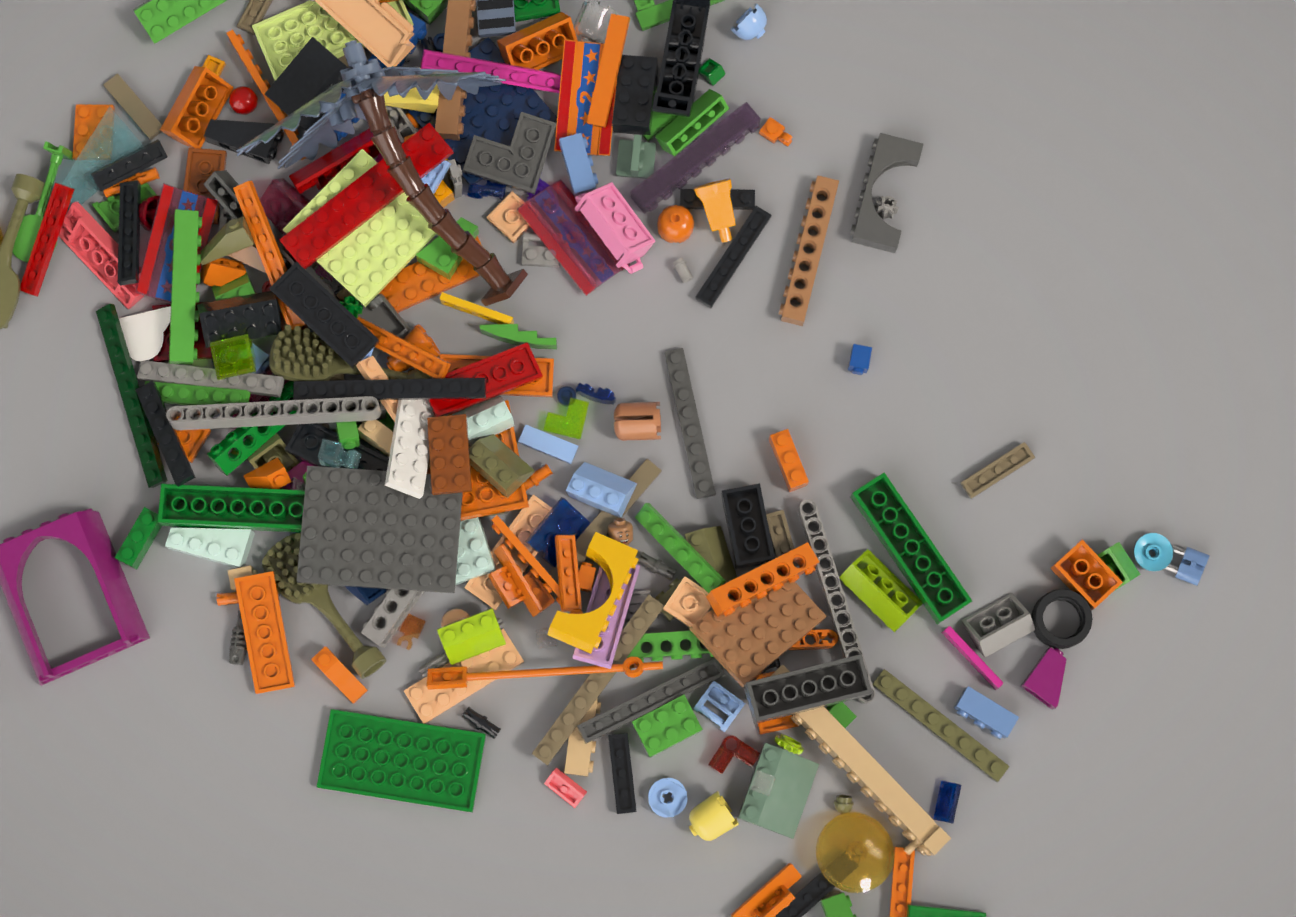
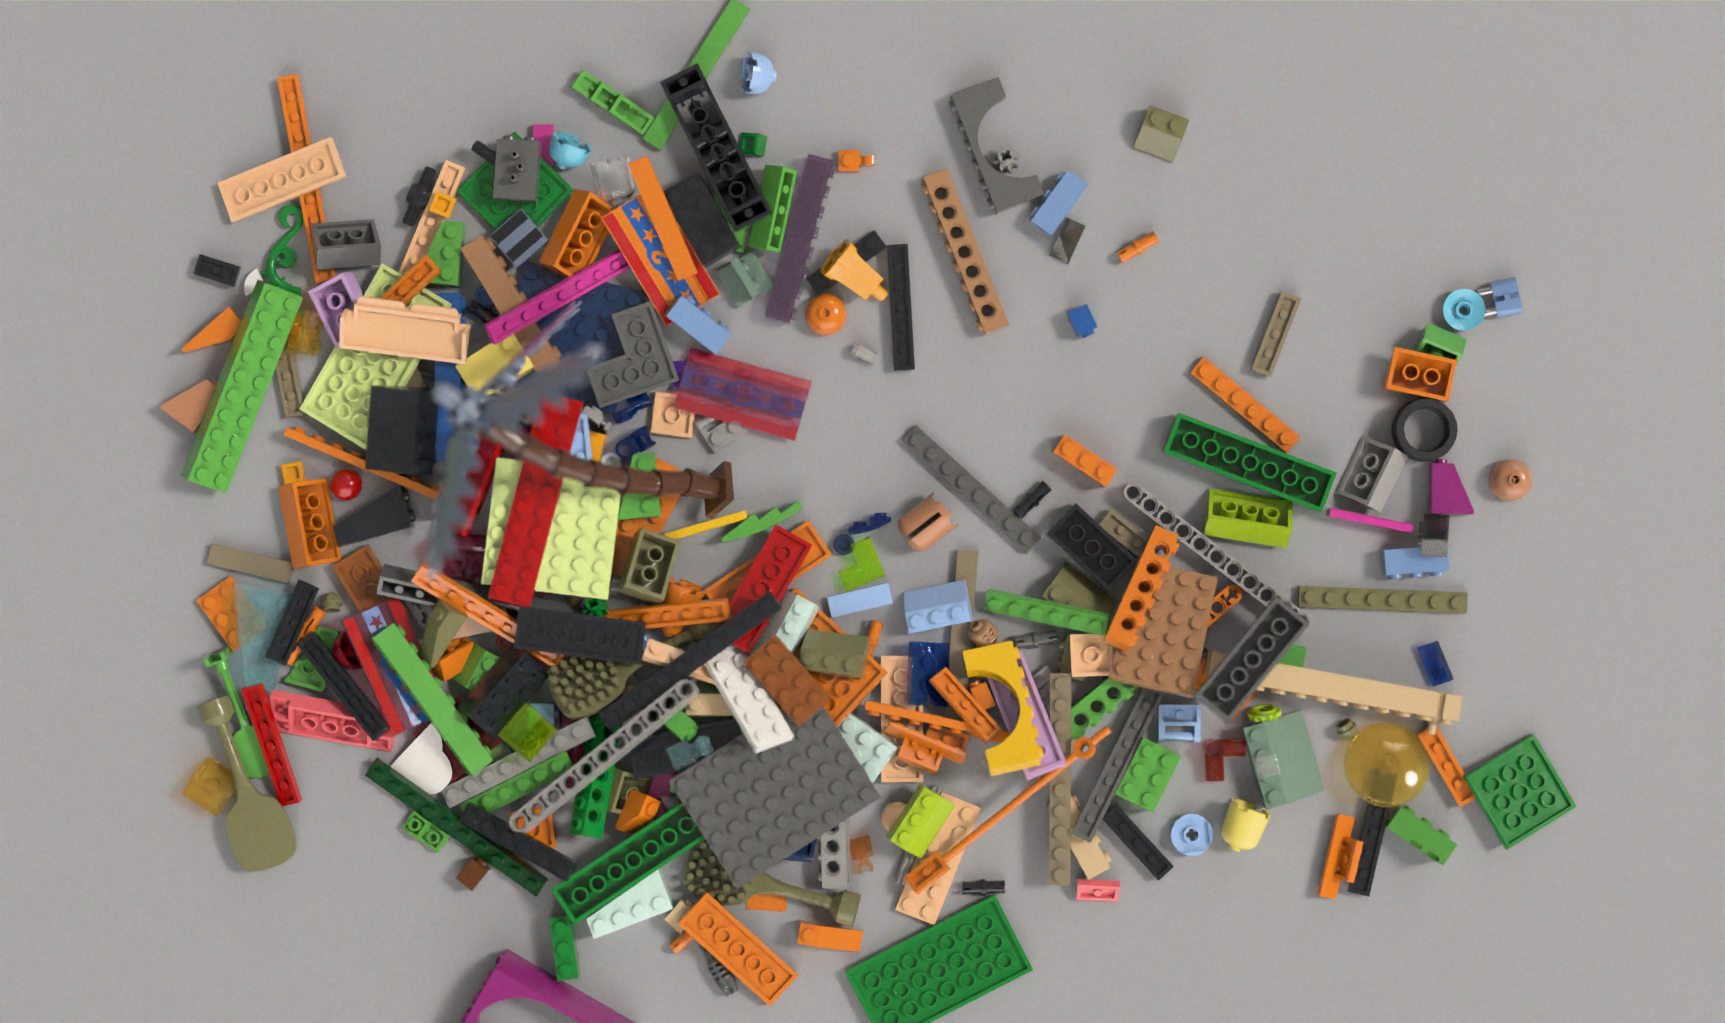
camera: 30 degrees left, 10 degrees up
(107, 383) = (425, 831): none -> bright green slope
(117, 436) = (473, 872): none -> reddish brown brick
(168, 173) = (331, 602): none -> olive plate
(313, 616) = (767, 902): none -> orange sticker
(412, 304) = (649, 566): none -> olive brick
(471, 214) = (636, 443): none -> clear blue piece
(616, 225) = (774, 357): bright pink container -> none
(729, 462) = (1032, 500): none -> black pin
(890, 295) = (1067, 240): none -> clear smoke slope
(903, 263) = (1058, 202): none -> medium blue brick
(937, 506) = (1245, 405): none -> orange plate
(939, 336) = (1138, 247): none -> orange pin
(1014, 267) = (1161, 133): none -> olive slope
(1014, 702) = (1434, 535): none -> clear smoke brick
(1095, 710) = (1501, 482): none -> nougat cylinder

